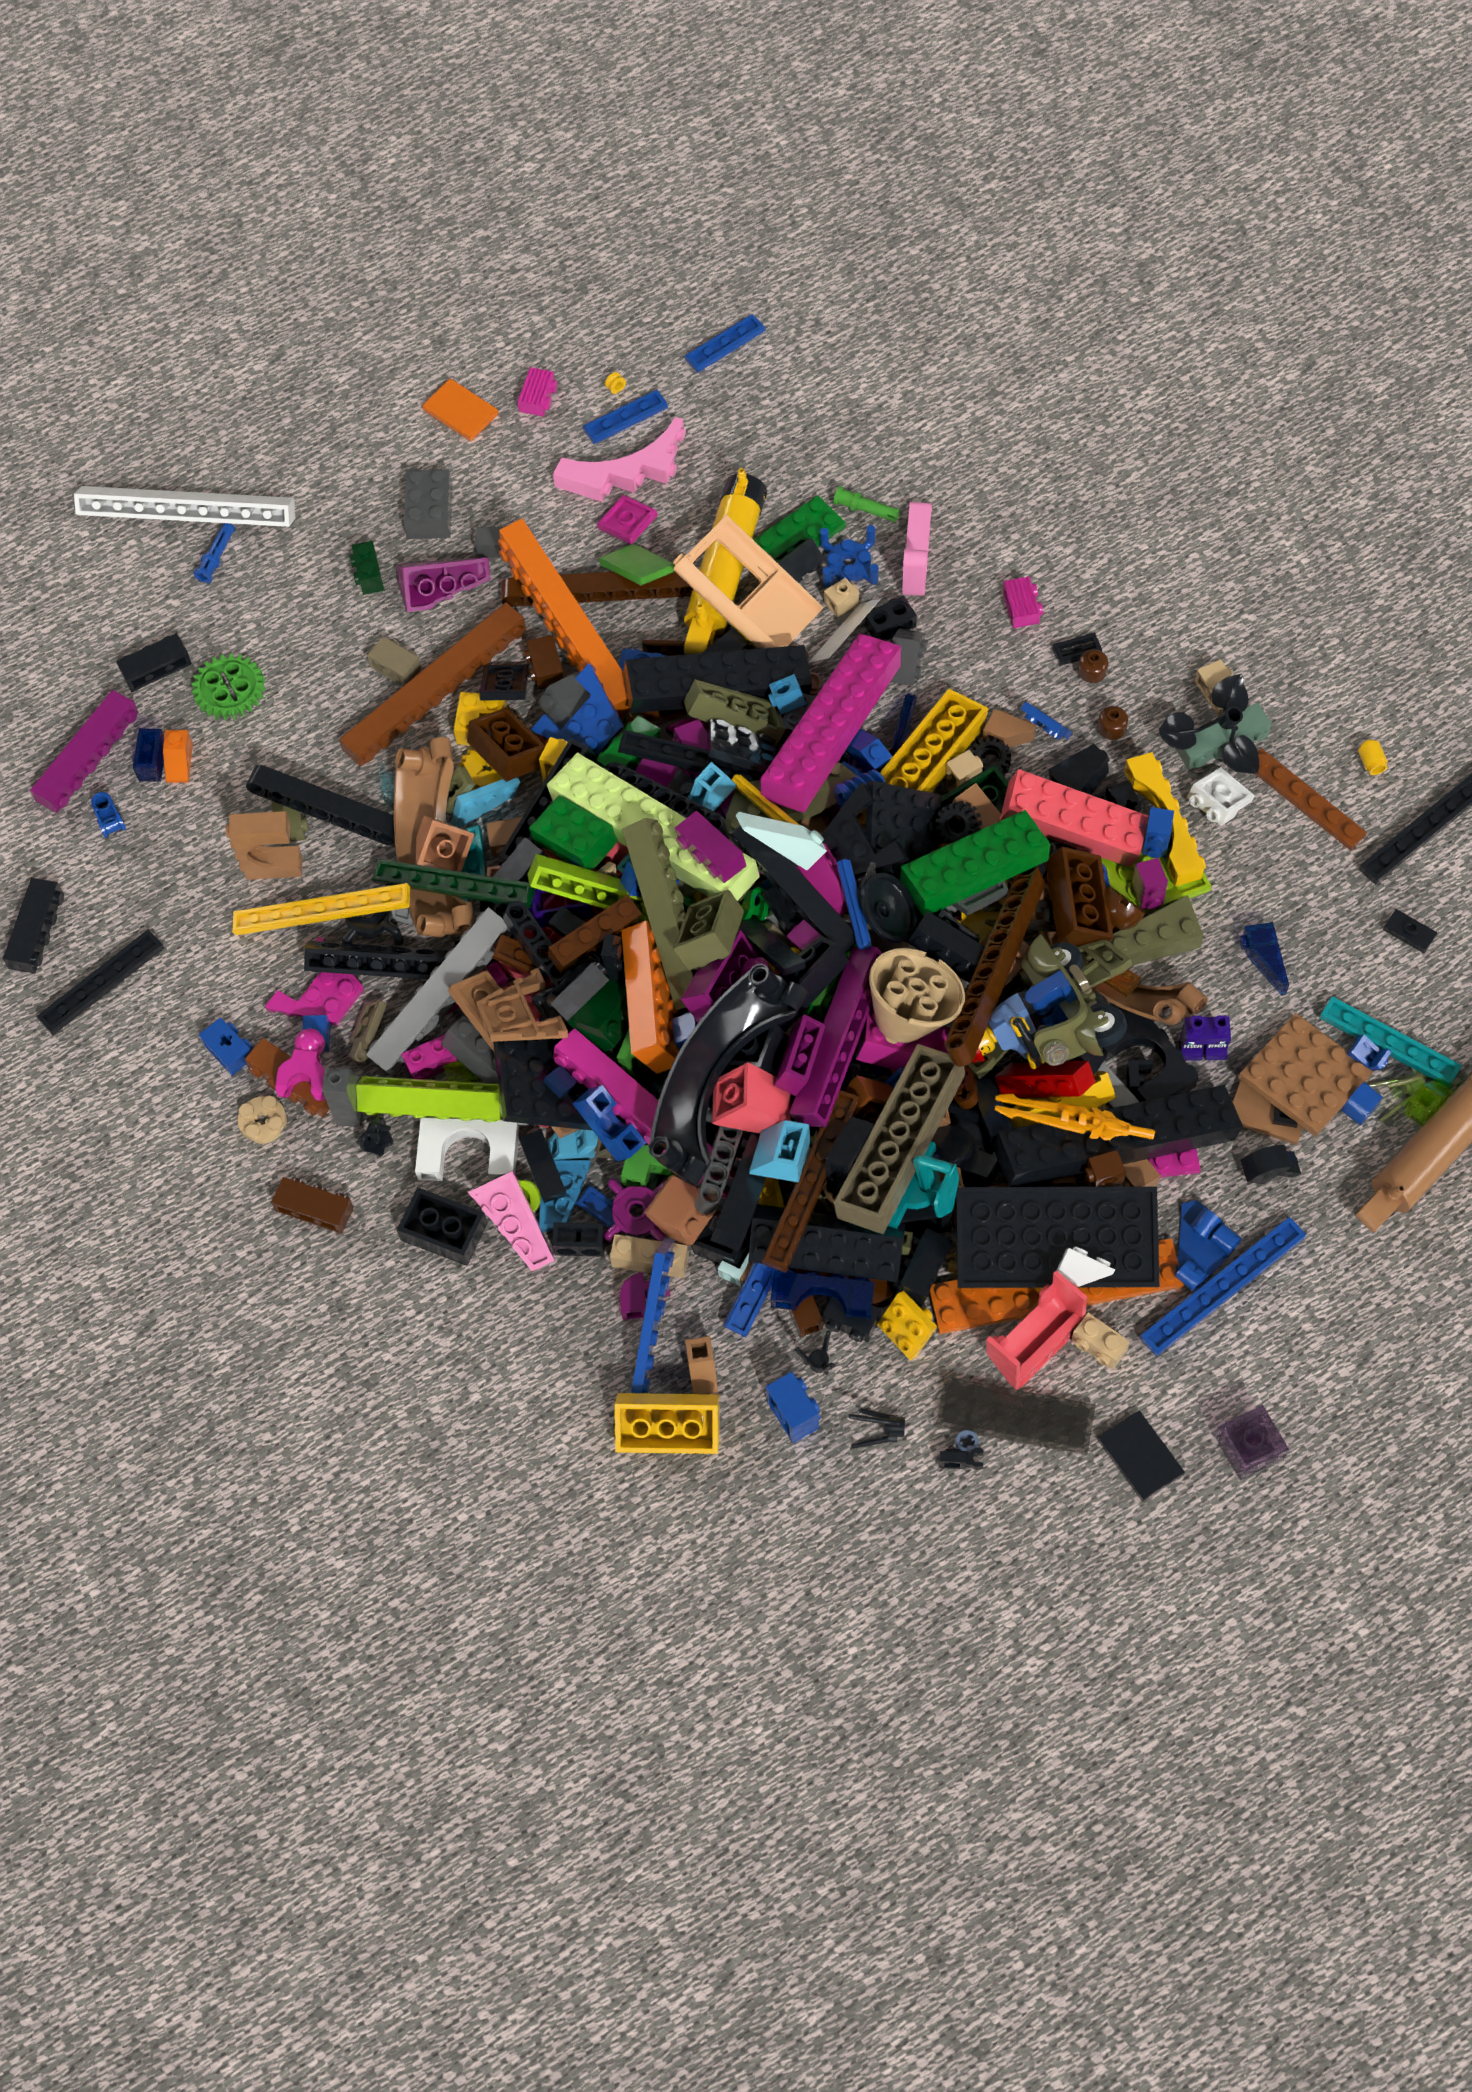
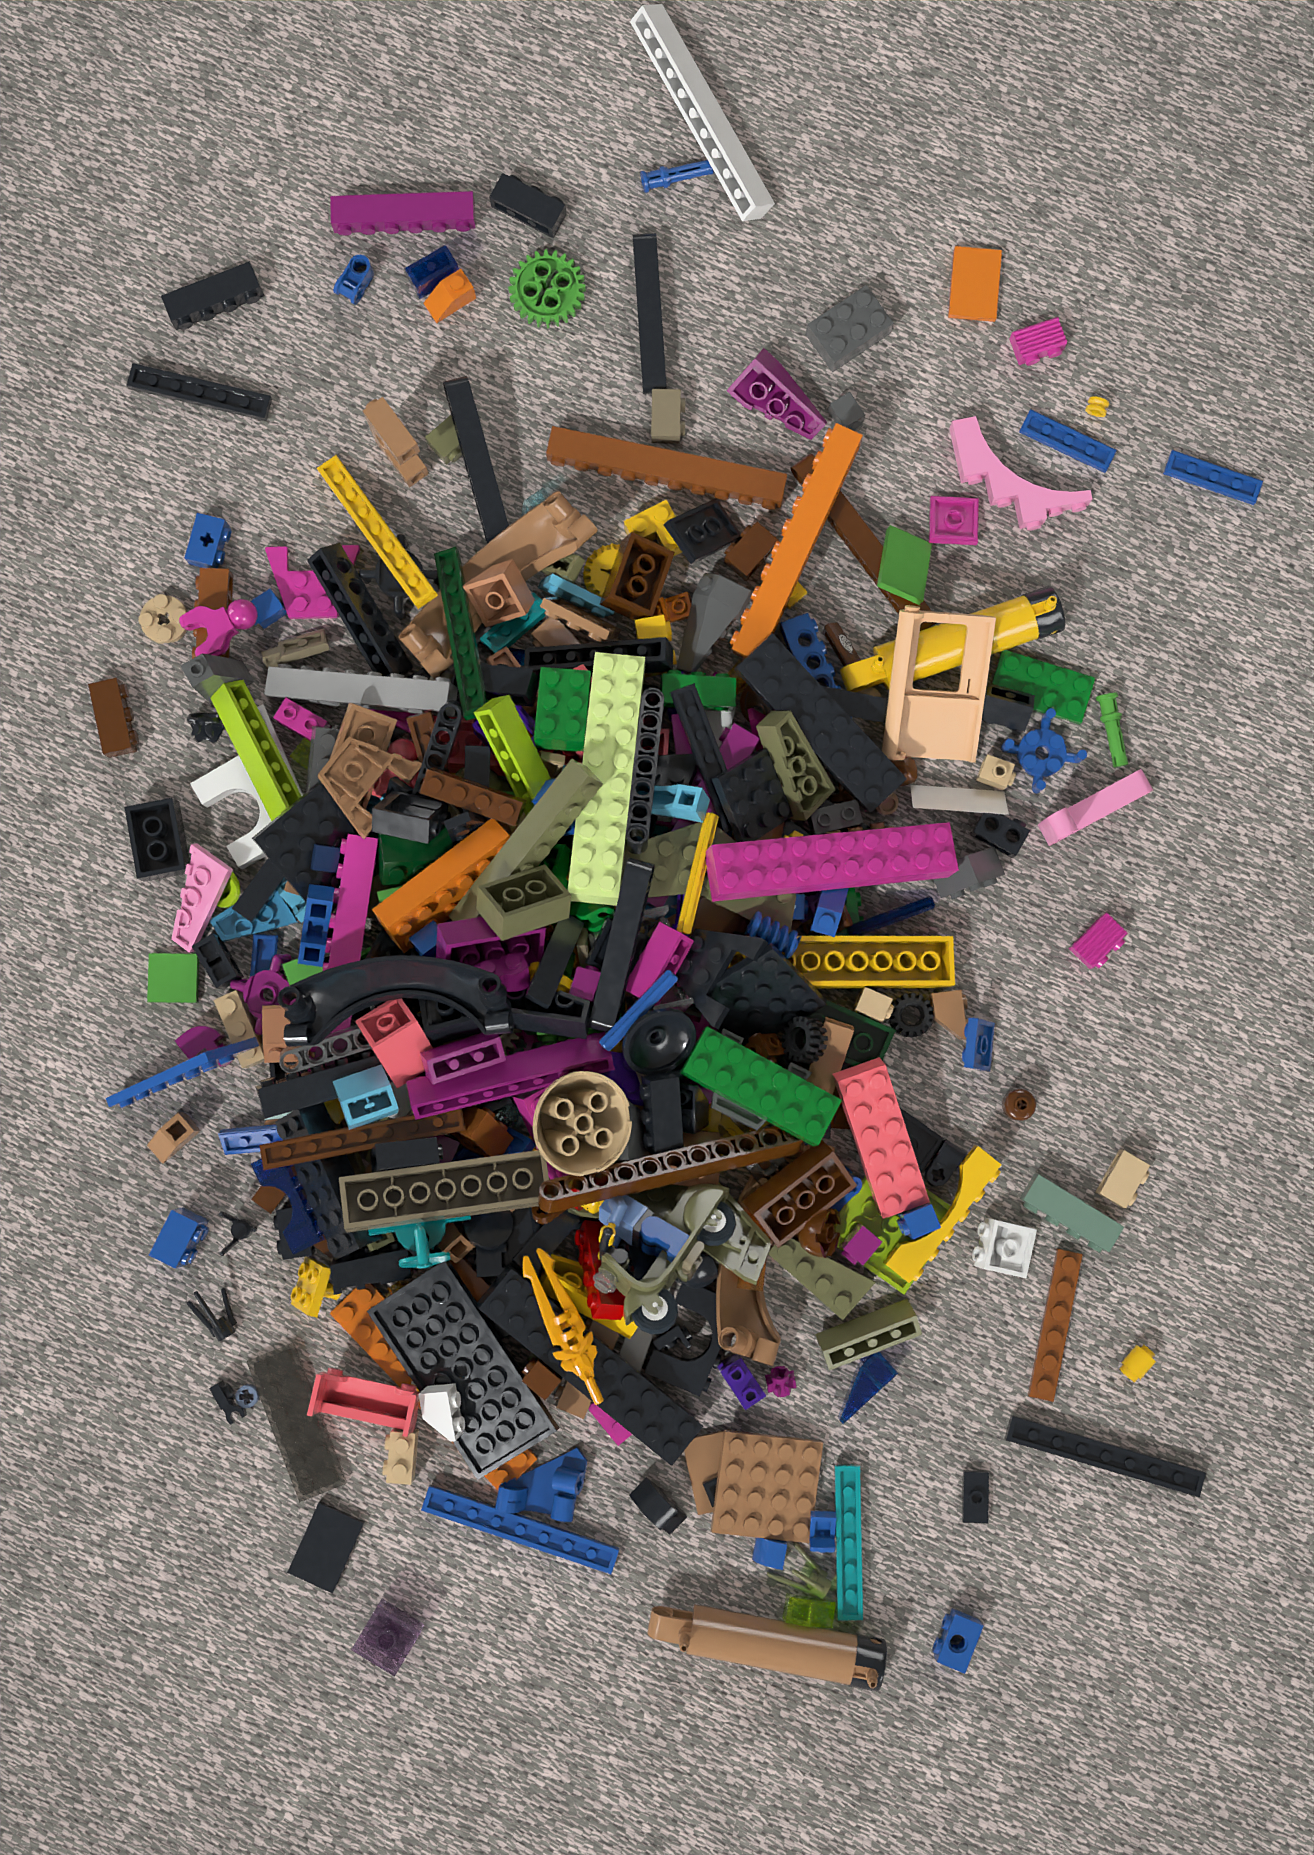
camera: 55 degrees right, 20 degrees up
(305, 628) = (649, 312): none -> black beam
(367, 566) = (746, 322): dark green brick -> none
(506, 800) = (579, 619): none -> medium nougat plate
(565, 1290) = (173, 978): none -> bright green tile
(593, 723) = (701, 641): blue wing -> none
(667, 1423) = (101, 1143): yellow brick -> none
(709, 847) = (599, 850): magenta brick -> none
(786, 694) = (842, 807): dark azure brick -> none
(788, 839) = (652, 908): light aqua wedge -> none
(1073, 655) = (1066, 1008): black tile -> none
(1083, 770) = (943, 1108): black slope -> none
(1093, 666) = (1060, 1050): reddish brown head -> none
(1227, 927) = (868, 1334): none -> olive brick
(1228, 1009) = (780, 1381): none -> magenta gear
(1233, 697) = (1110, 1202): black plant -> none

